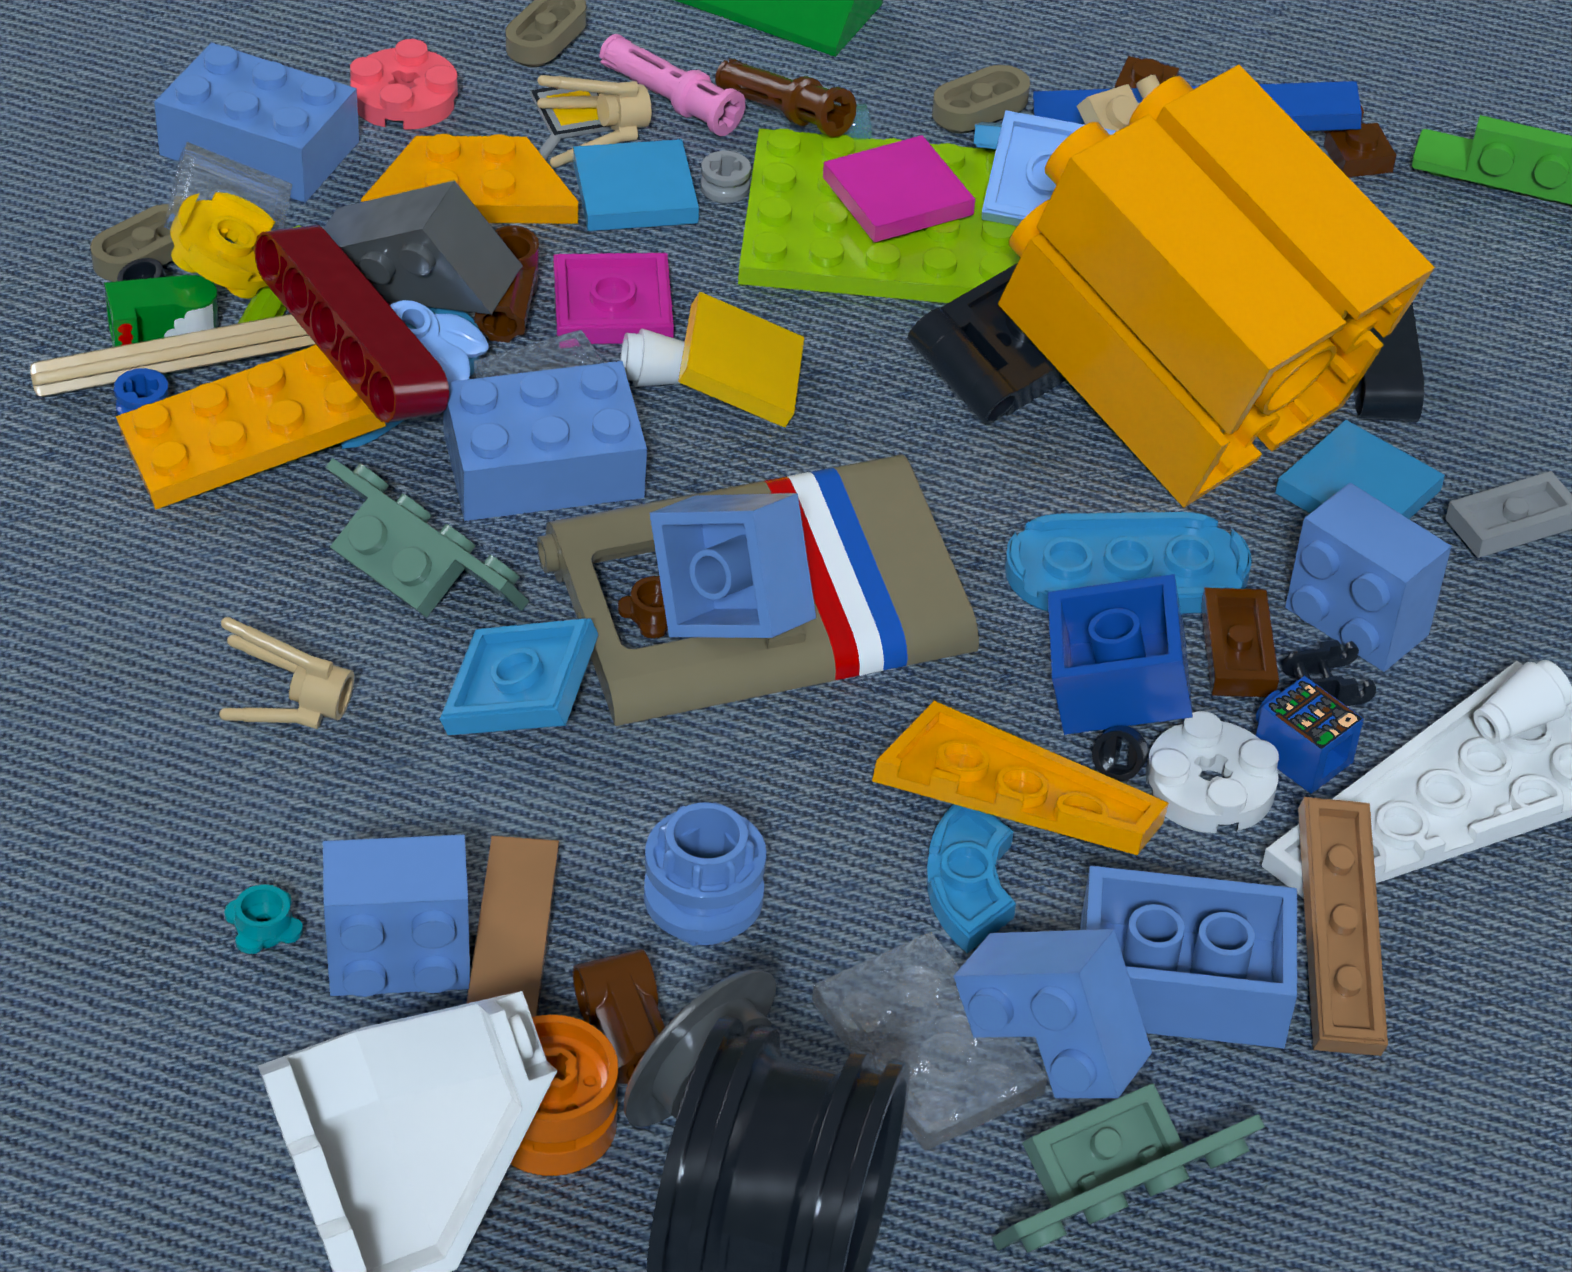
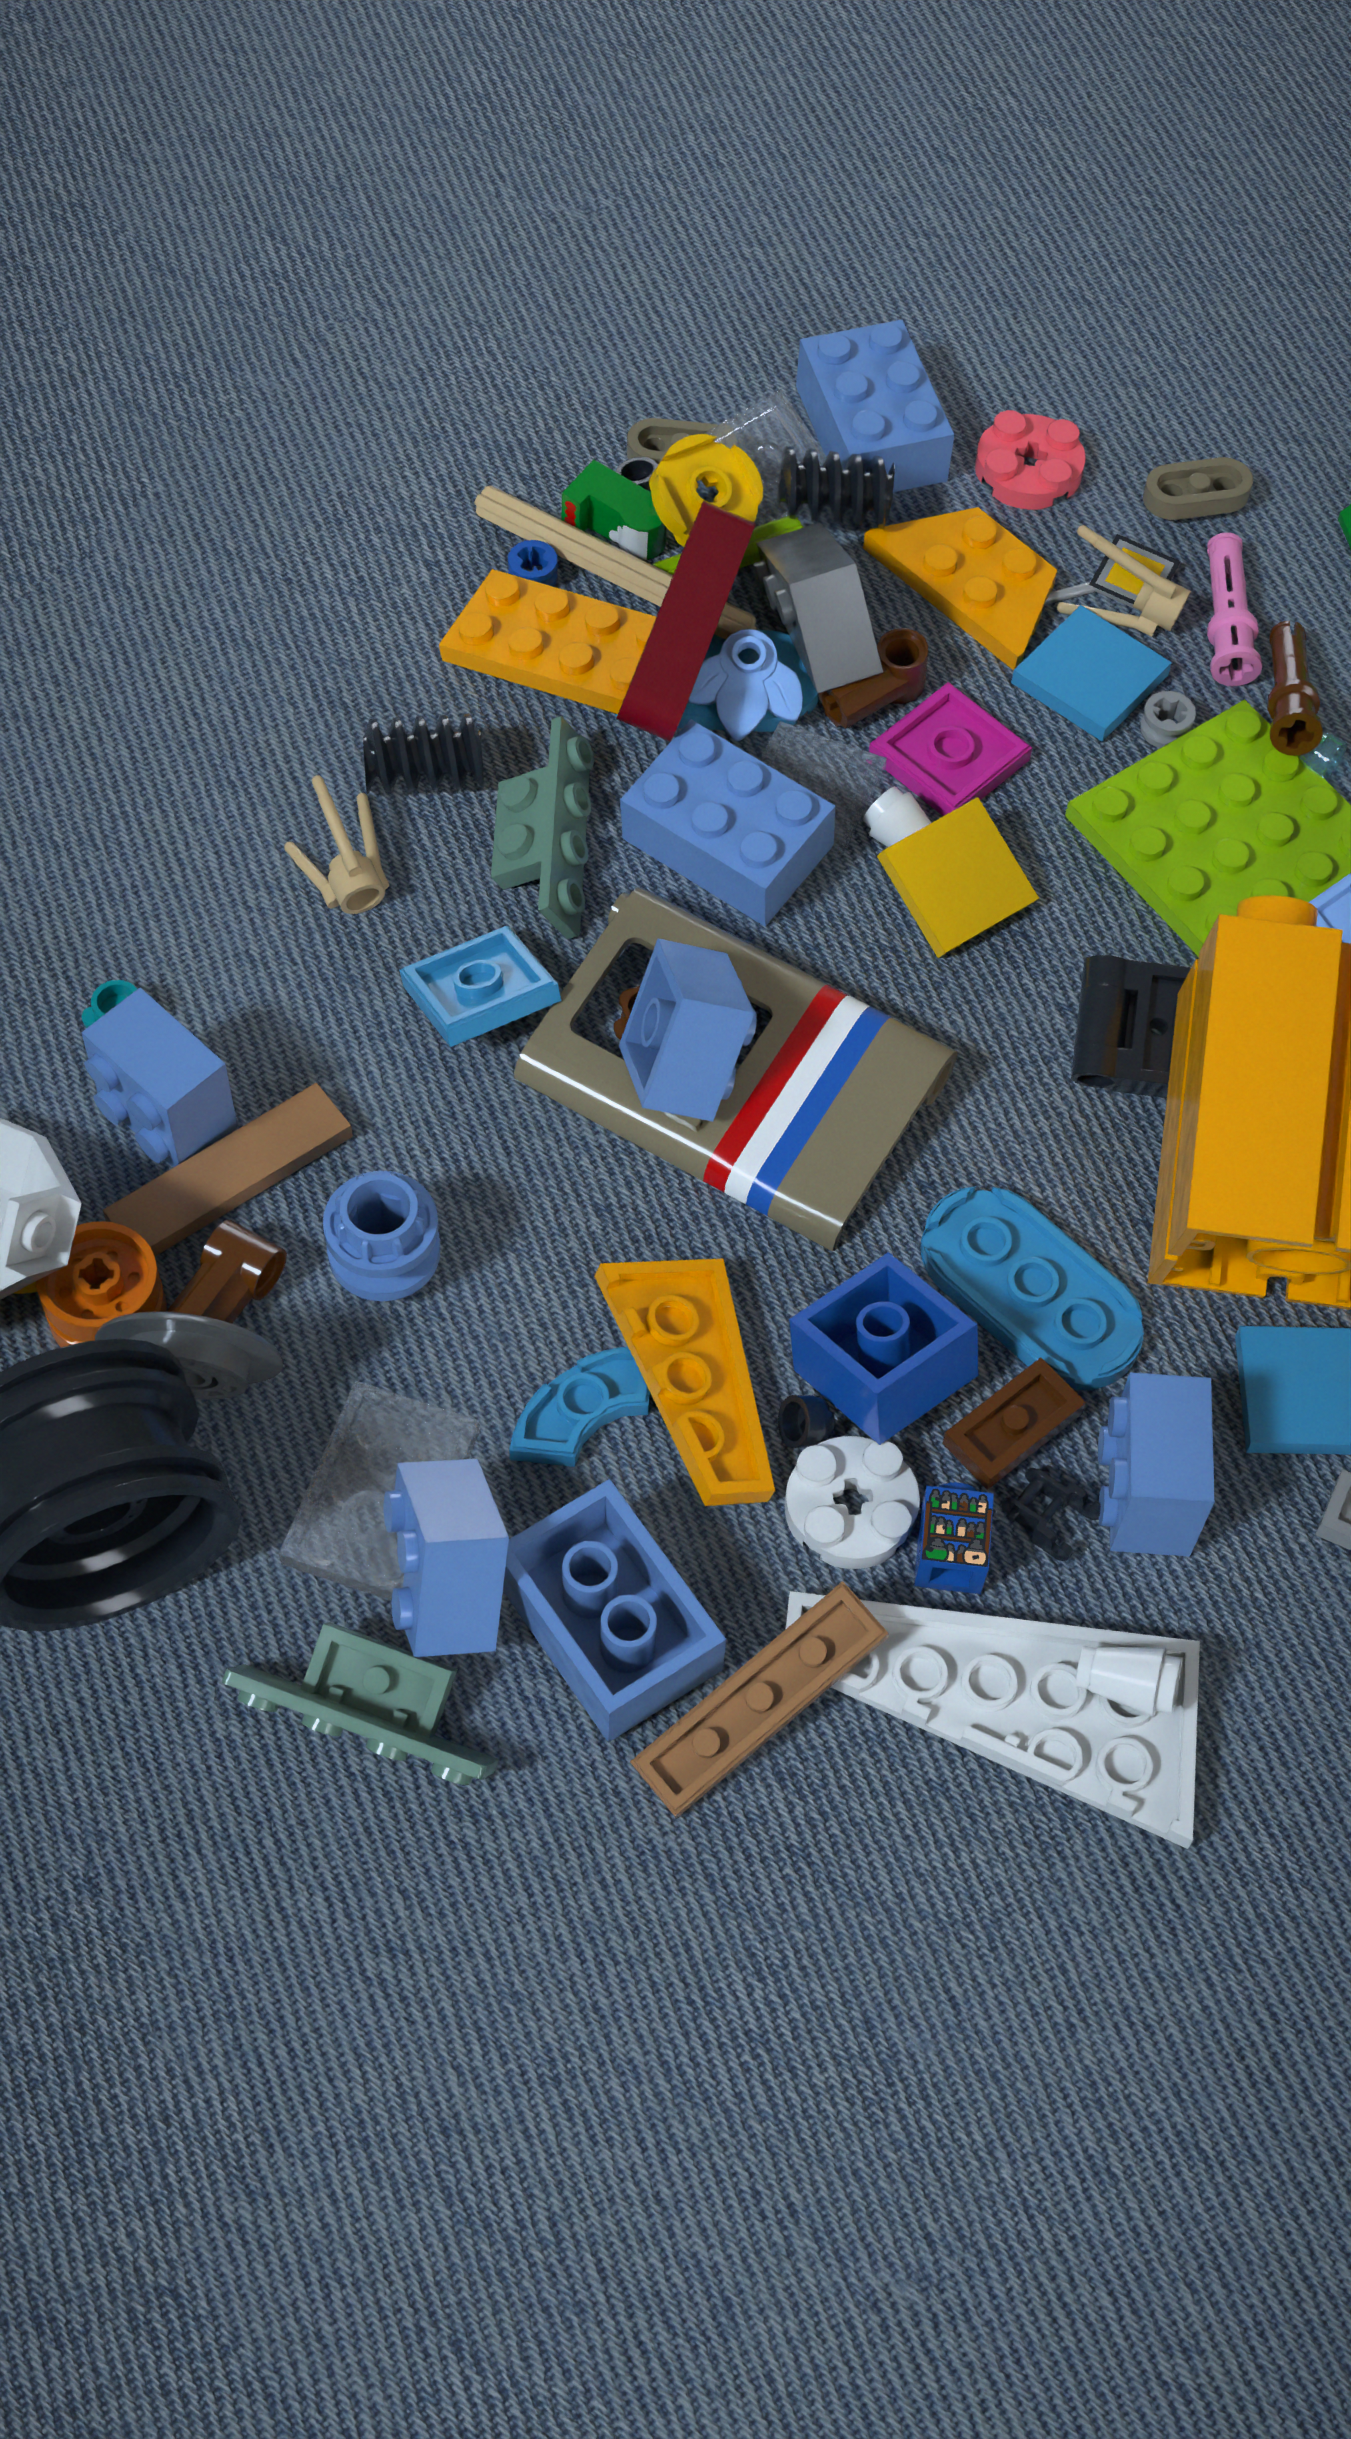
camera: 50 degrees right, 15 degrees up
(253, 564) = (422, 753): none -> black piece
(314, 179) = (835, 486): none -> black piece
(898, 188) = (1265, 835): dark pink tile -> none

